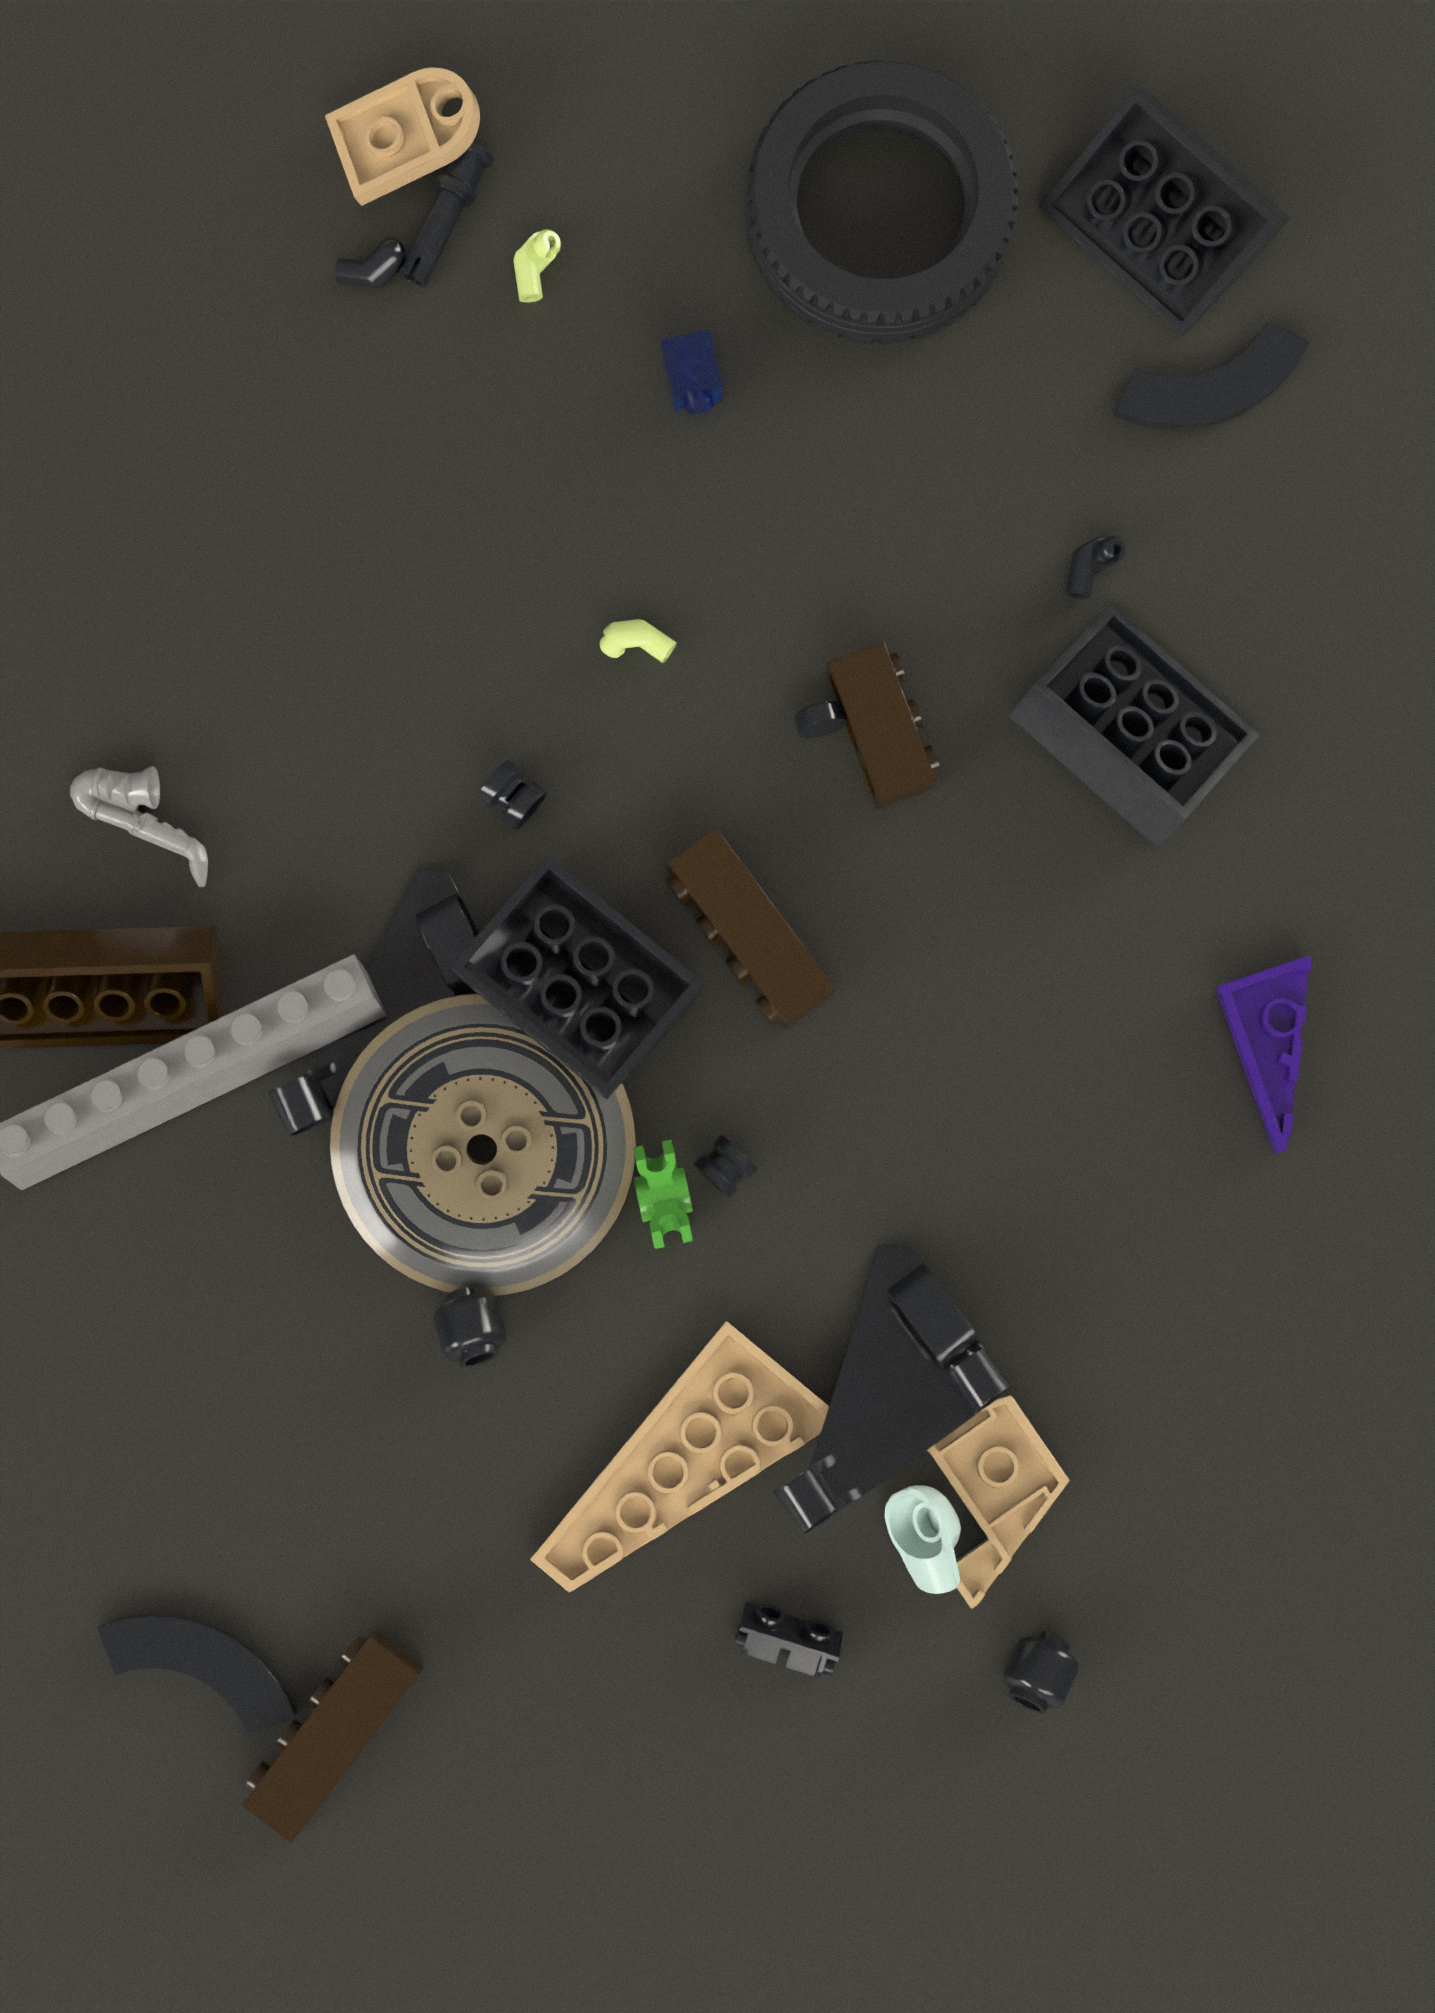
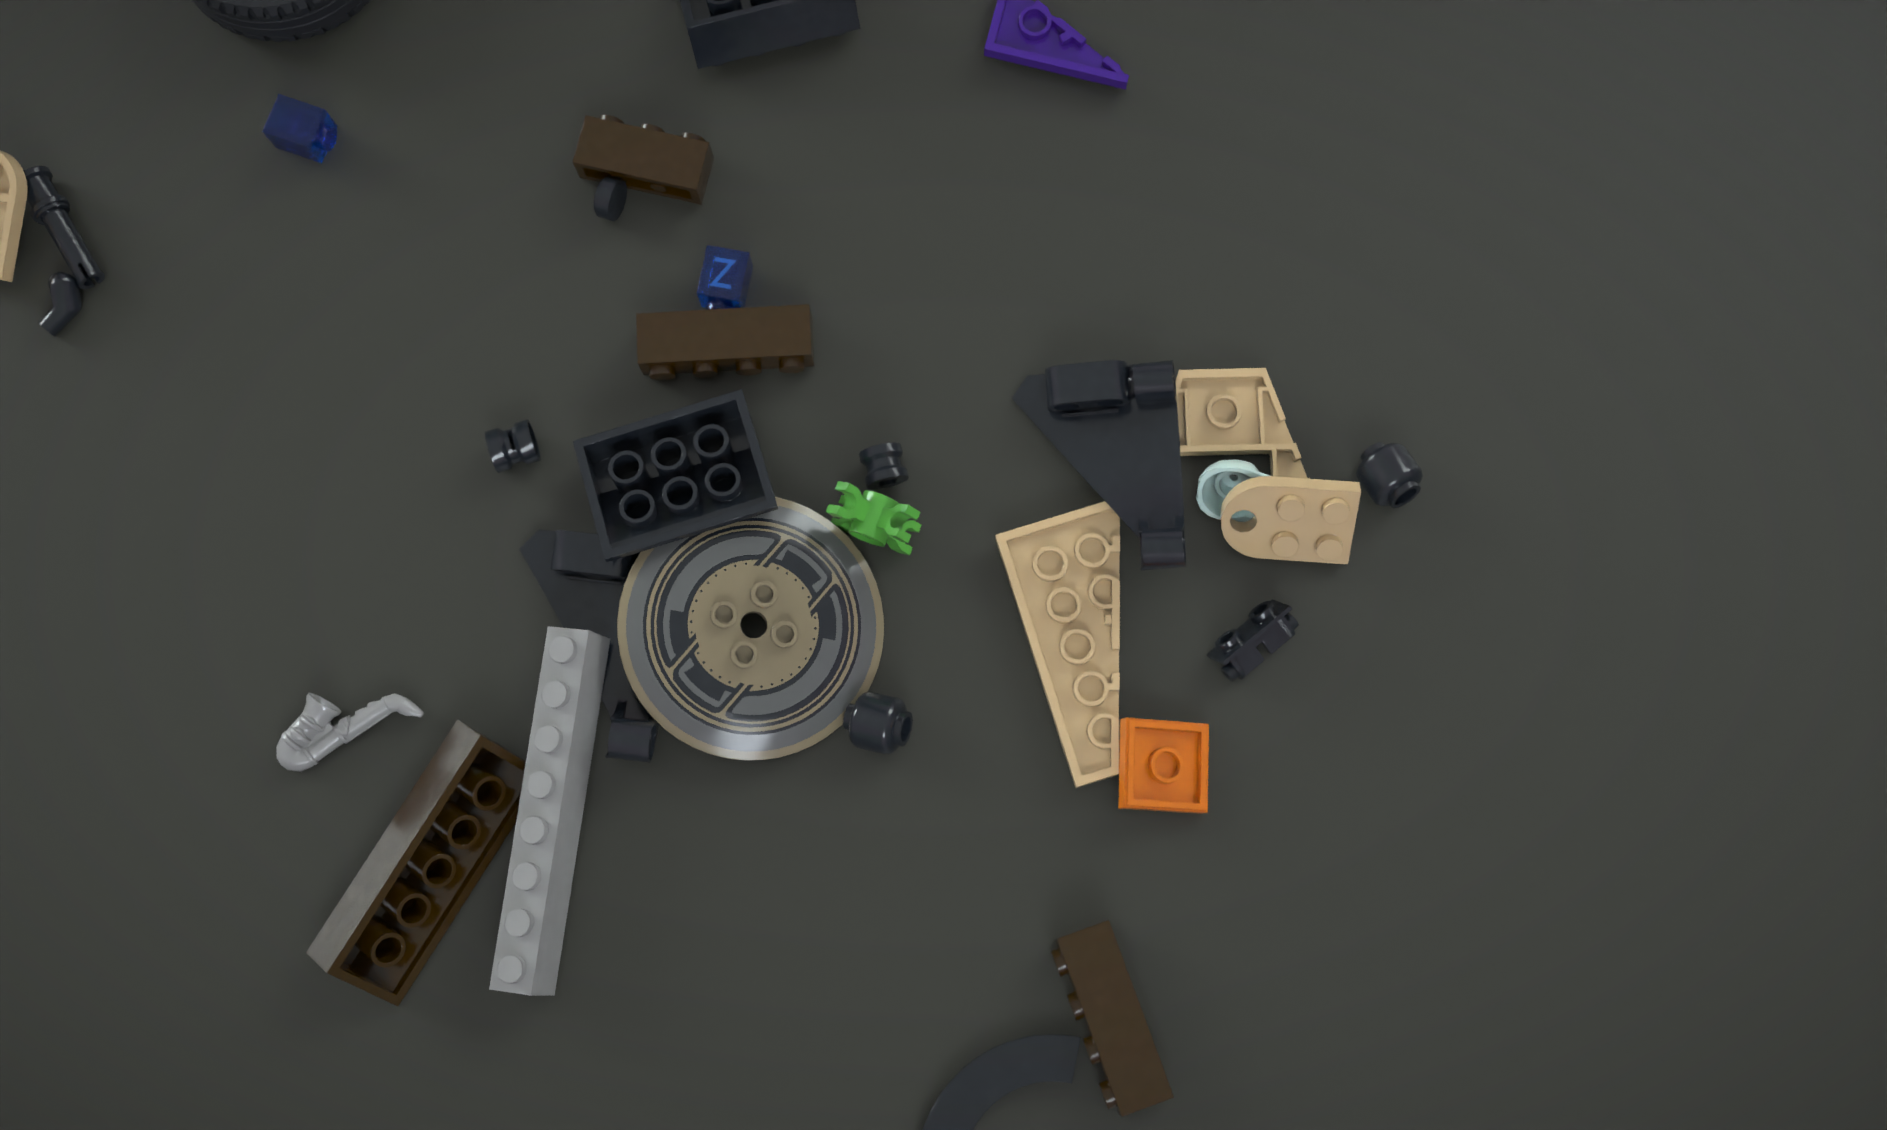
camera: 50 degrees left, 5 degrees down
(532, 260) = (141, 191): yellowish green arm -> none
(605, 1631) = (1163, 765): none -> orange plate
(633, 634) = (460, 286): yellowish green arm -> none
(809, 888) = (724, 278): none -> clear blue brick
(929, 1604) = (1292, 518): none -> tan plate

